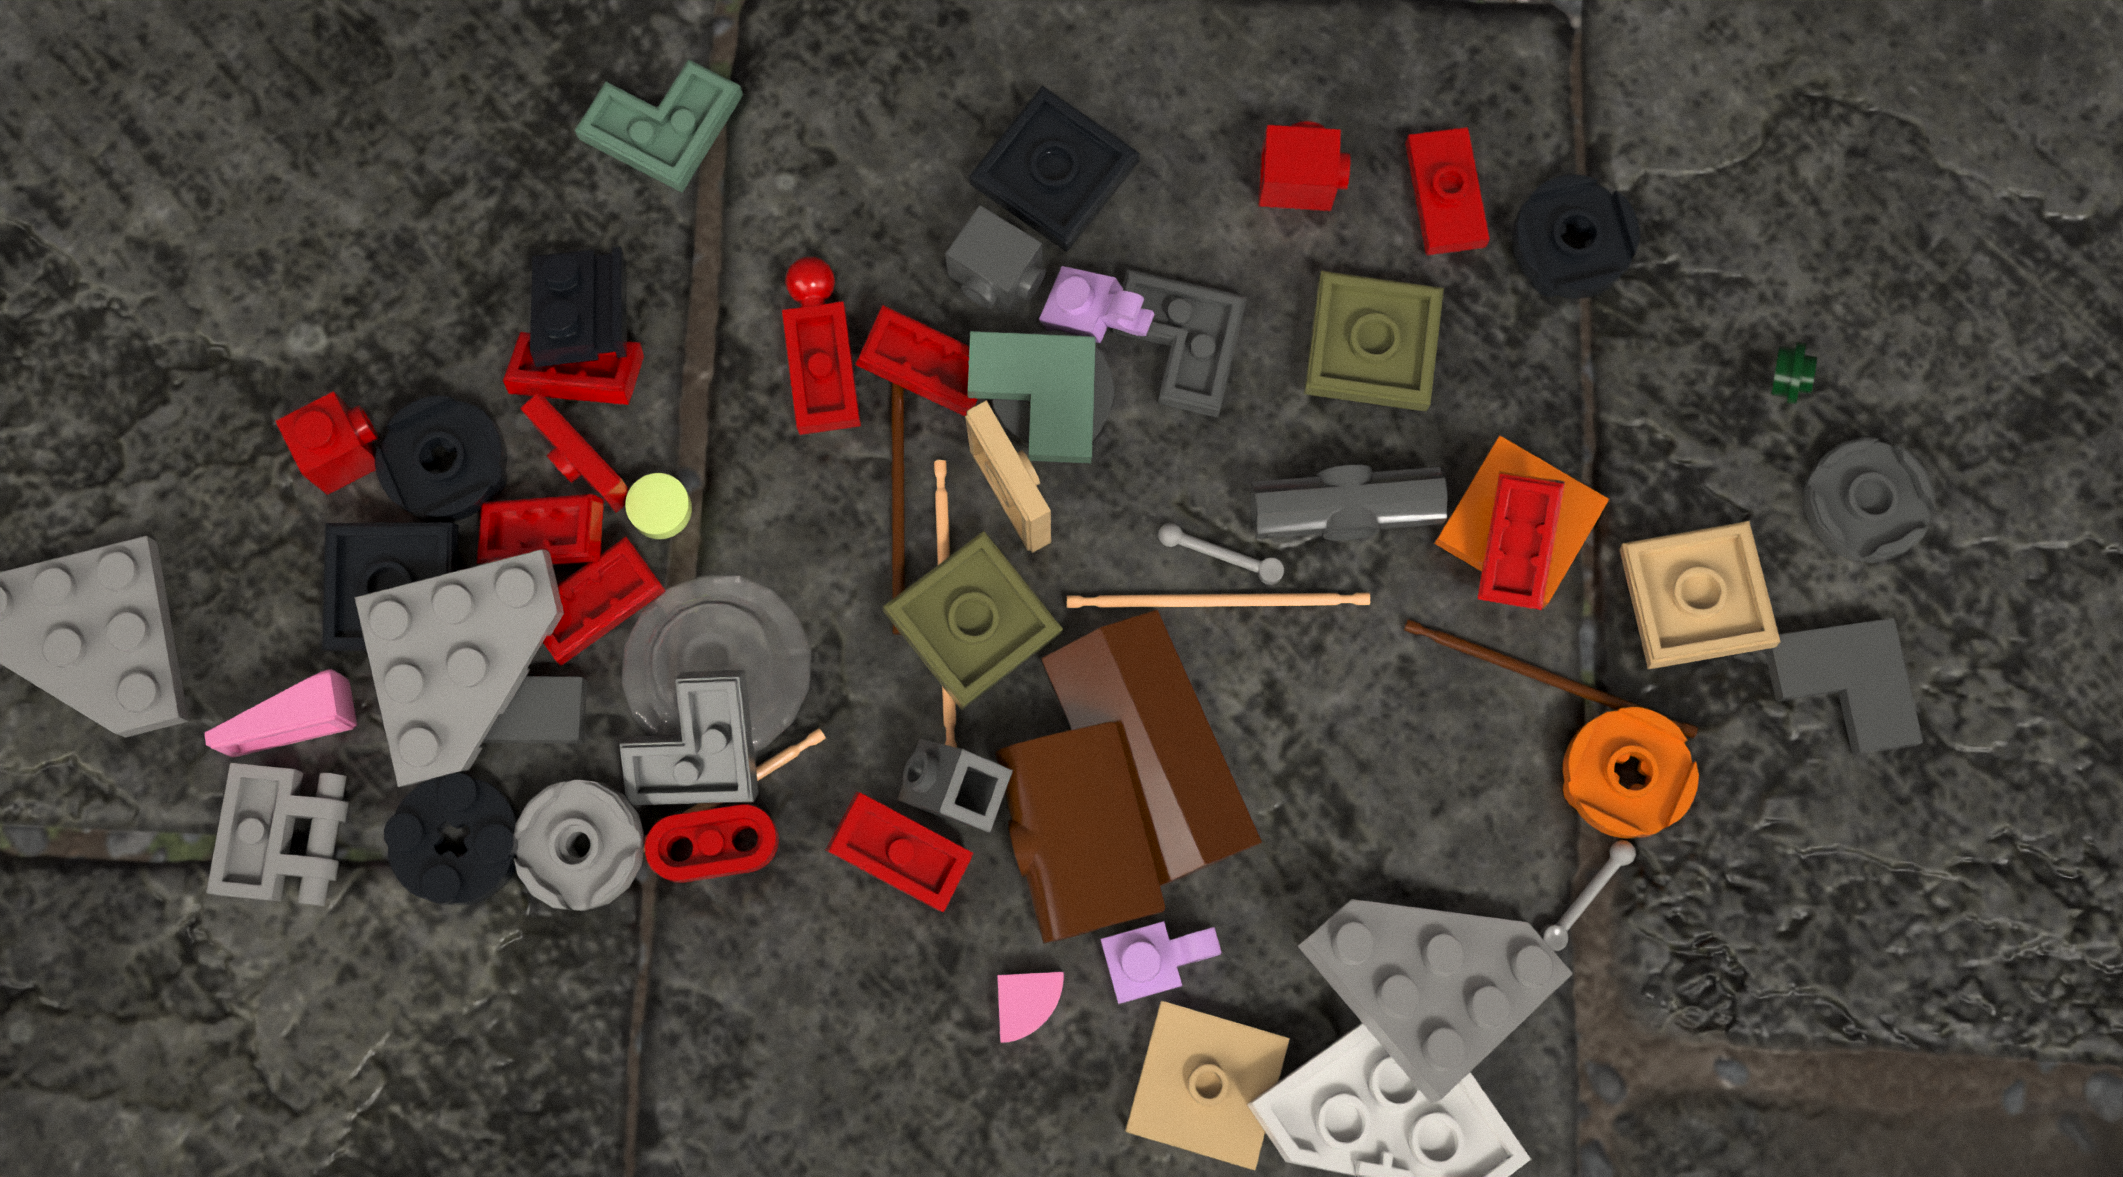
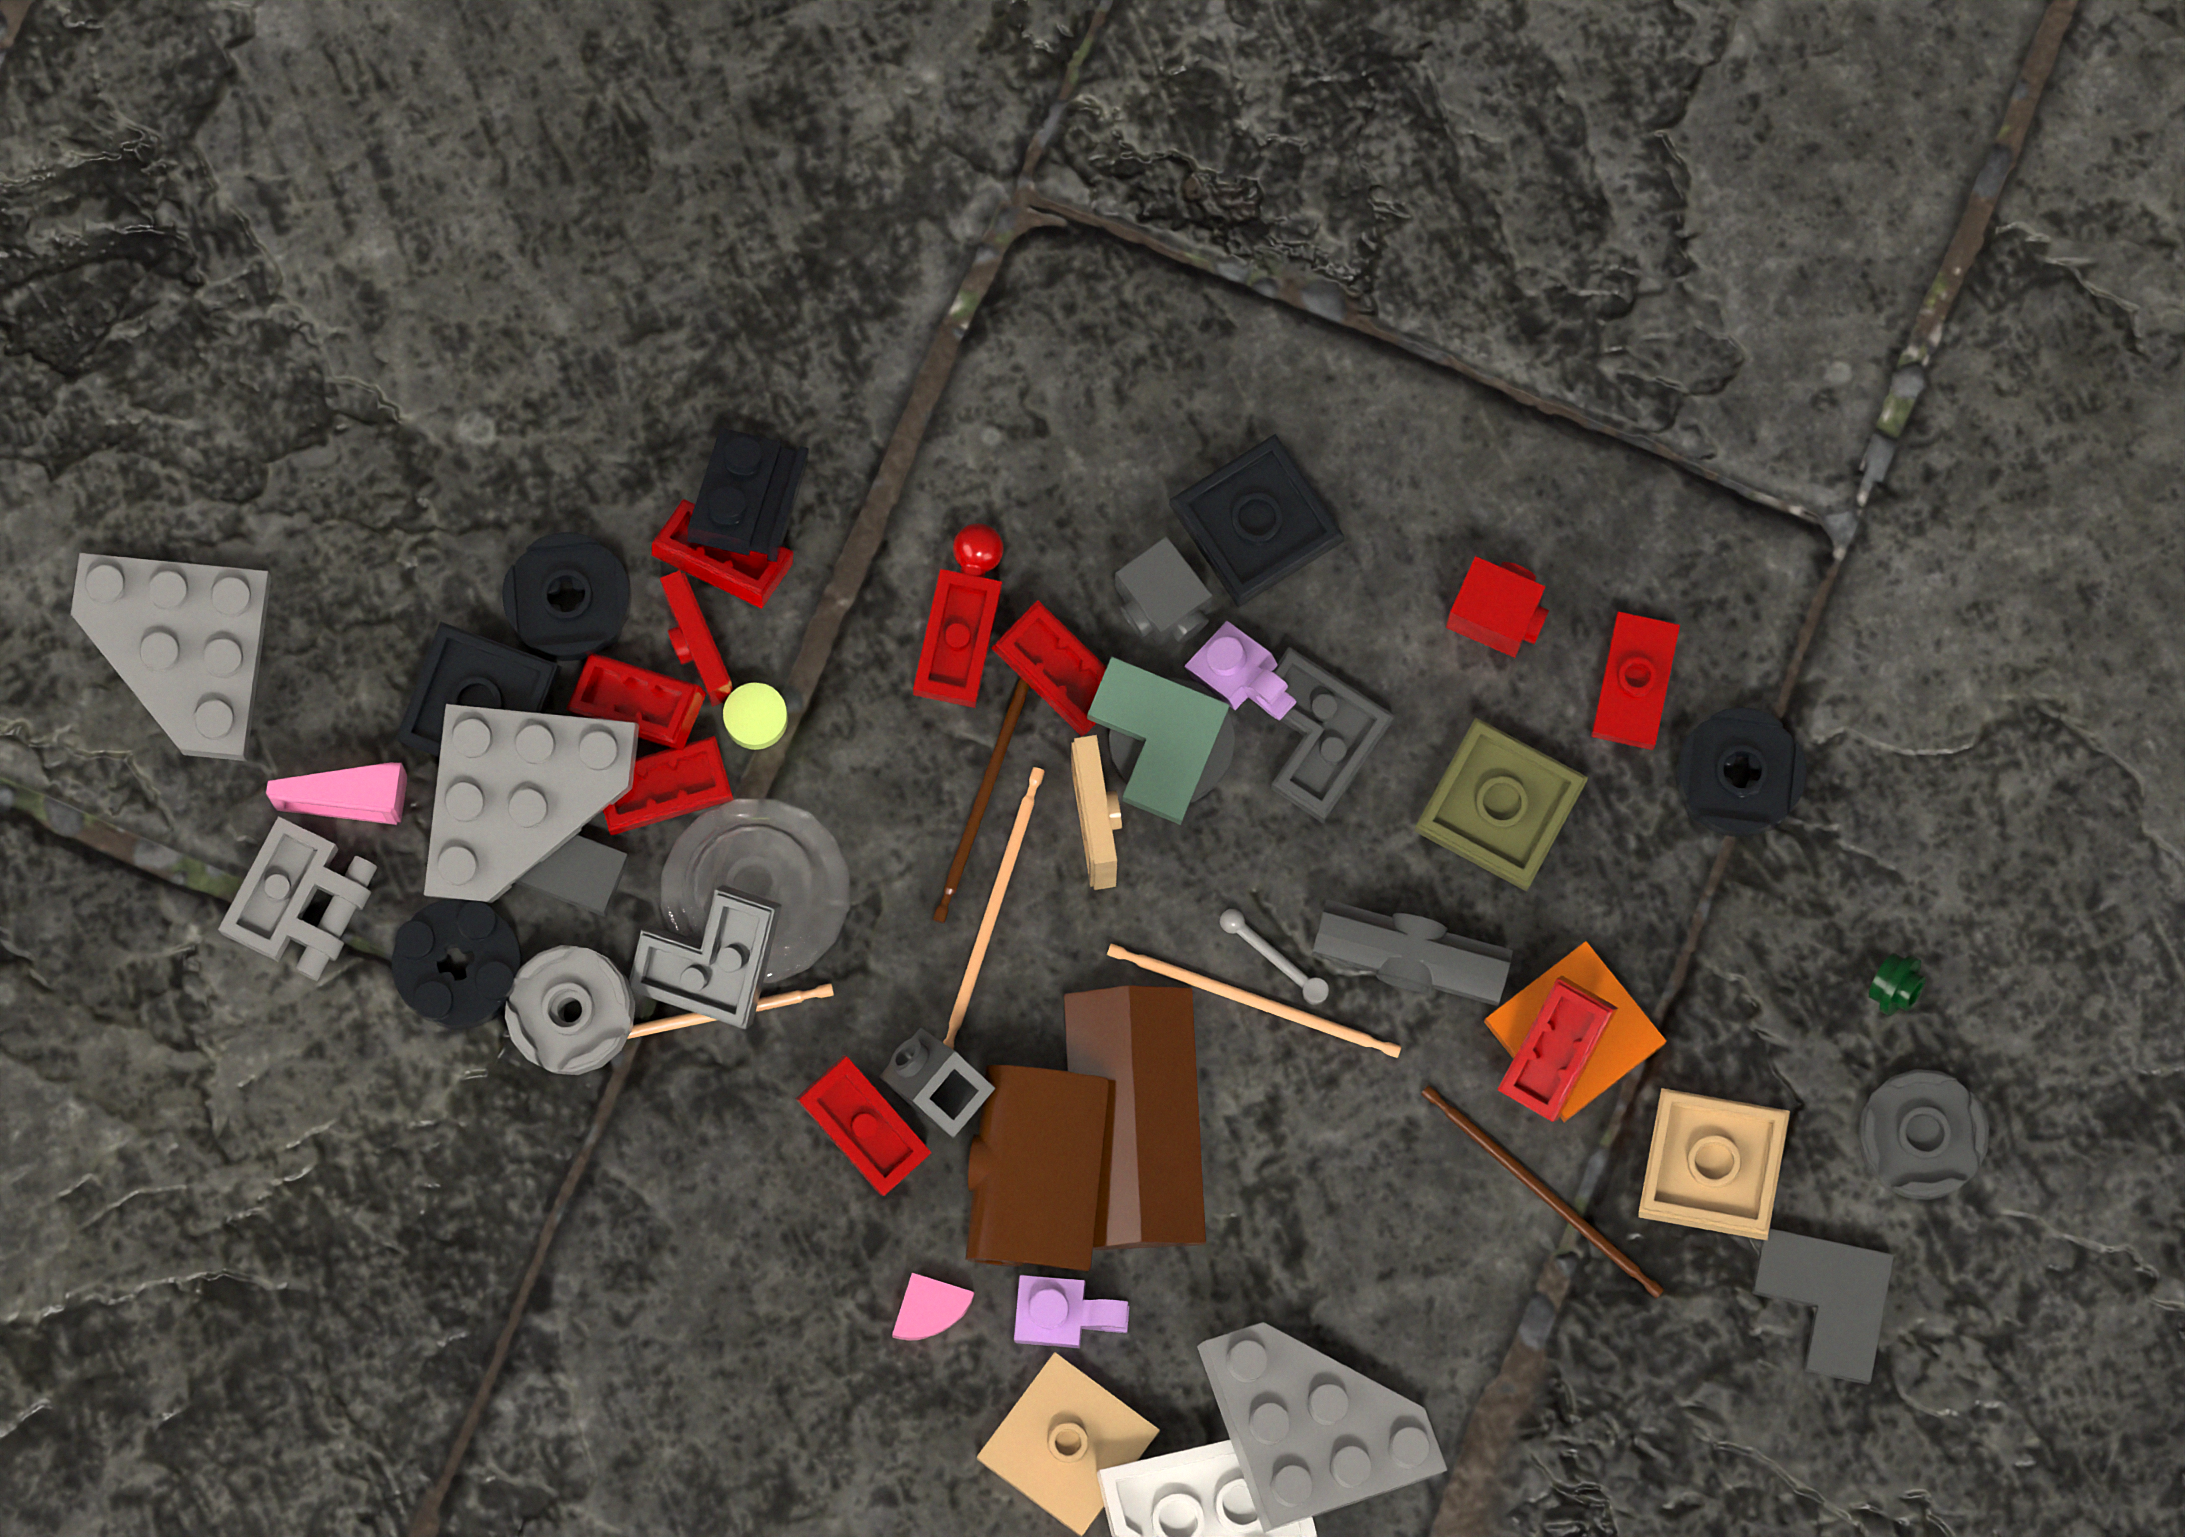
camera: 20 degrees right, 0 degrees up
(330, 442) = (471, 544): red brick -> none
(666, 139) = (888, 353): sand green tile -> none
(713, 842) = (694, 1054): red plate -> none
(972, 620) = (1012, 934): olive plate -> none
(1556, 934) = (1448, 1432): light grey hinge -> none
(1664, 760) = (1578, 1269): orange plate -> none

